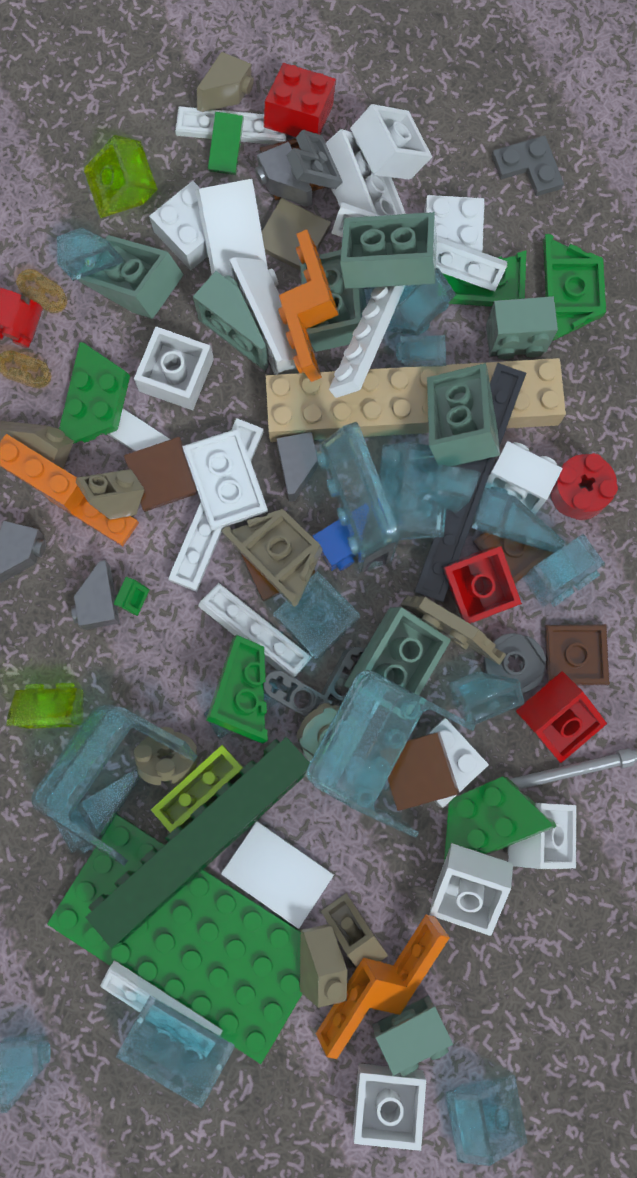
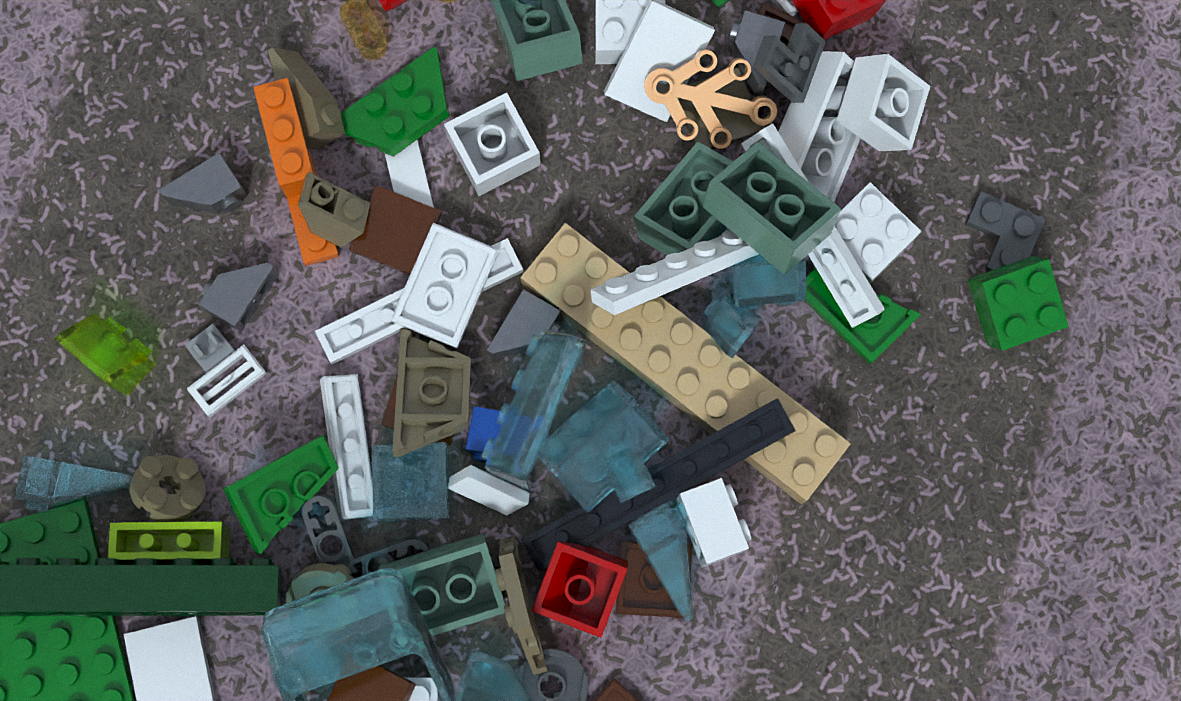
camera: 40 degrees right, 0 degrees up
(84, 760) = (89, 429): clear light blue windscreen -> none
(110, 649) = (209, 348): none -> light grey tile
(131, 596) = (269, 318): green tile -> none
(138, 666) = (233, 392): none -> white tile
(226, 313) = (585, 126): sand green slope -> none
(262, 299) = (621, 172): white slope -> none
(279, 226) = (704, 96): none -> light nougat plant
(307, 306) = (657, 193): orange bracket -> none
(369, 578) = (488, 490): none -> white tile
(462, 416) = (698, 418): sand green slope -> none
(521, 327) = (843, 383): sand green brick -> none
(567, 568) = (669, 643): clear light blue brick -> none
(575, 283) = (933, 387): green wing -> none
(577, 194) = (1018, 302): none -> green brick
(588, 471) = (782, 571): red brick -> none

